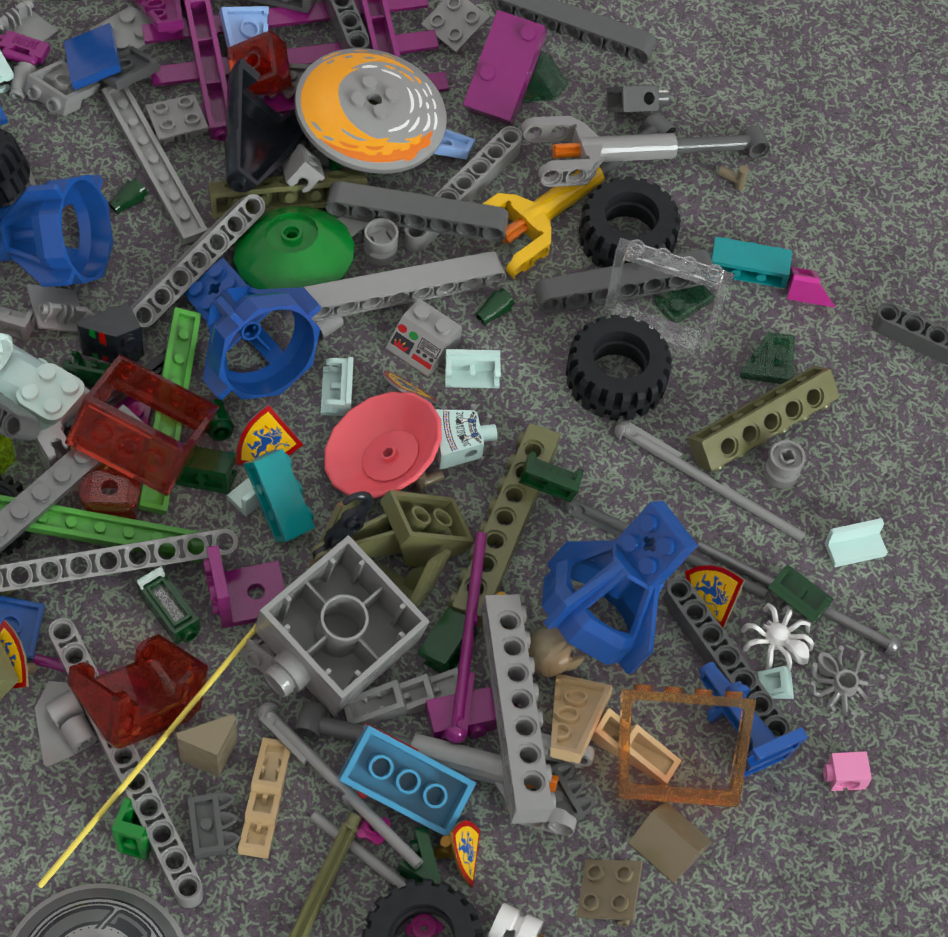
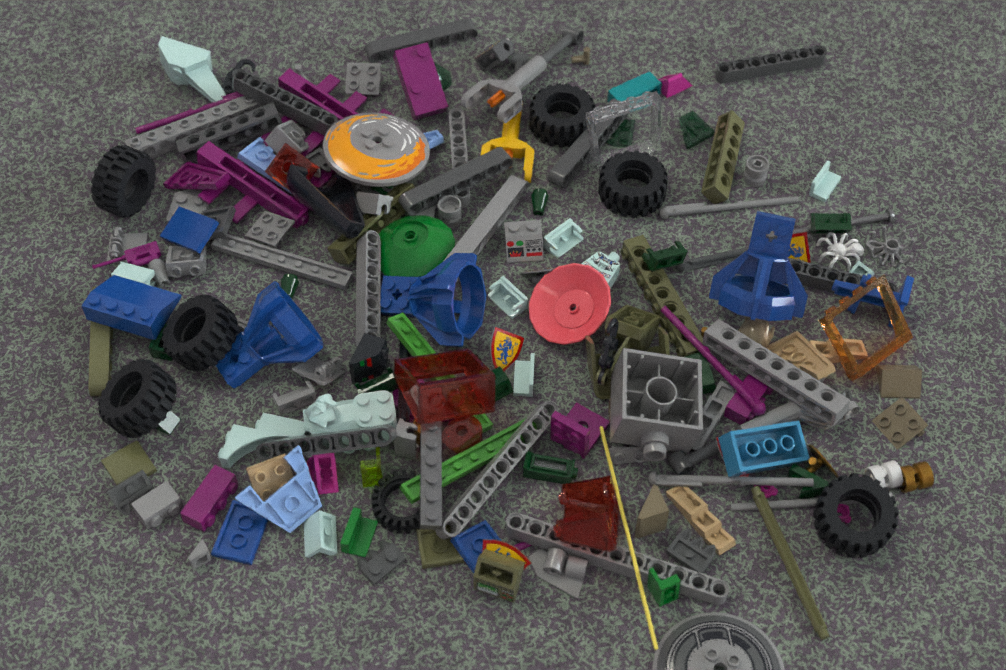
camera: 35 degrees left, 5 degrees down
(280, 495) = (547, 367): teal brick -> none
(298, 28) = (287, 133): none -> light grey slope
(848, 771) = (936, 284): bright pink brick -> none

